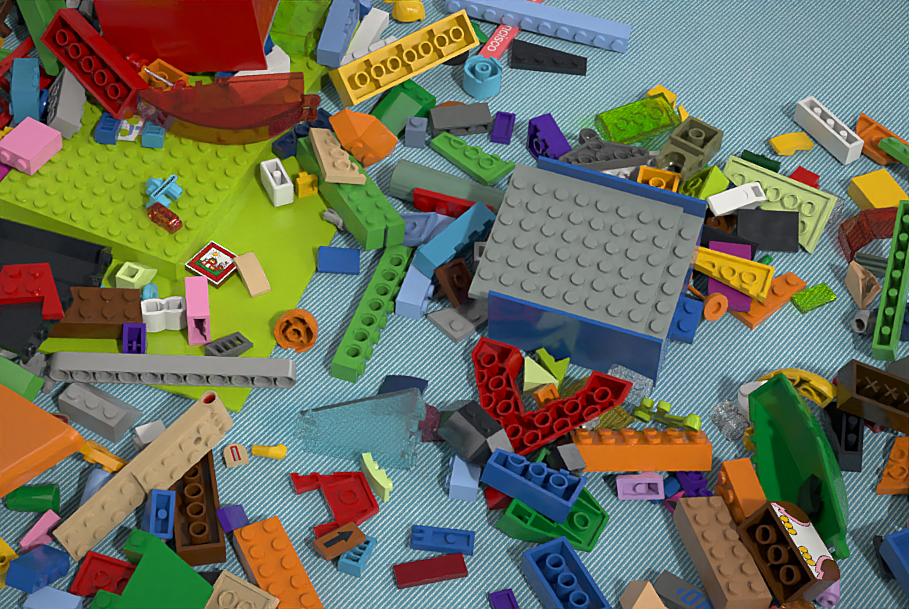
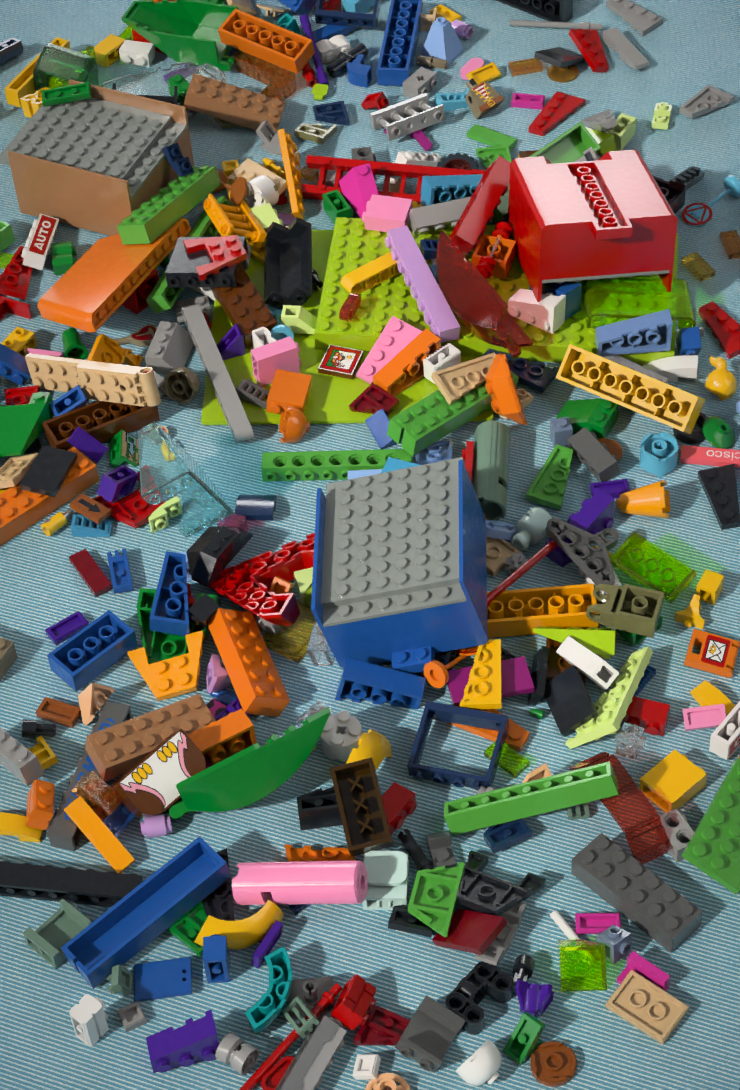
camera: 80 degrees right, 0 degrees up
(118, 178) = (370, 274): none -> yellow beam
(160, 190) = (376, 294): medium azure hips -> none
(174, 147) = (422, 284): none -> lavender brick
(174, 402) = (181, 385): none -> dark tan cylinder
(234, 212) = (391, 341): none -> bright pink wing
(248, 316) = (288, 390): none -> orange brick
(249, 494) = (124, 448): none -> panel
(252, 274) = (337, 382): tan slope -> none
(264, 208) = (408, 364): none -> orange wedge
(273, 559) = (48, 471): none -> black tile
(296, 252) = (373, 400): none -> dark red wing
(315, 503) = (117, 483): none -> dark purple brick
(335, 585) = (56, 522): none -> yellow piece
(542, 98) = (646, 501): none -> light orange cone
(623, 525) = (173, 675): none -> light orange wing
(644, 414) = (299, 661): lime plant -> none
(700, 360) = (379, 685): none -> blue wedge
(741, 123) = (716, 653): none -> orange container
(761, 161) = (671, 671): dark green pin -> none
(812, 153) = (703, 717): none -> bright pink tile
(816, 296) = (461, 716): none -> dark blue window

